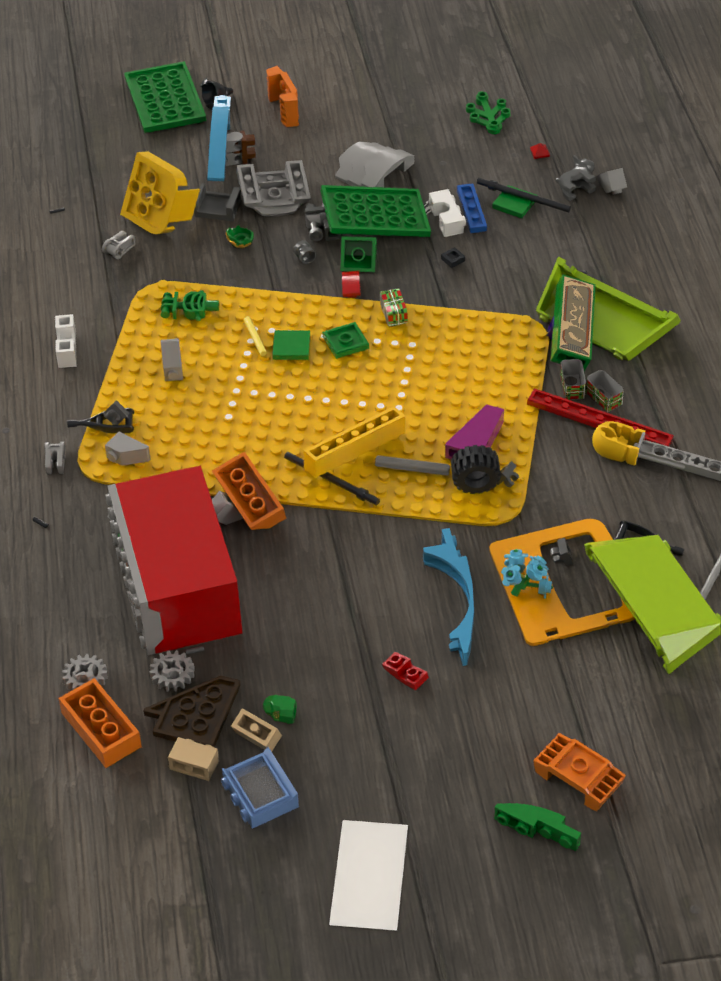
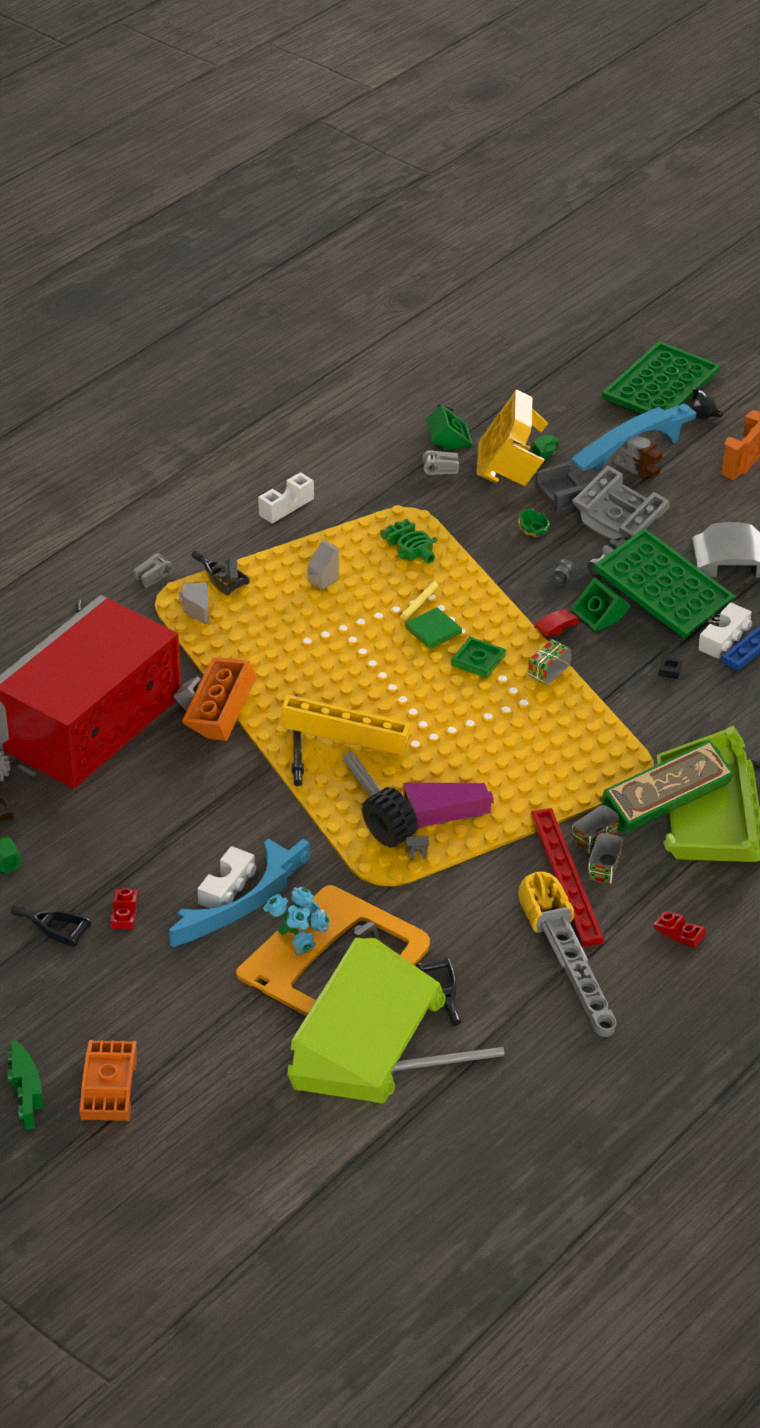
camera: 50 degrees right, 5 degrees down
(89, 221) = (448, 430): none -> green slope
(375, 725) = (48, 917): none -> black piece
(429, 582) = (236, 869): none -> white arch
(693, 397) = (676, 928): none -> red slope

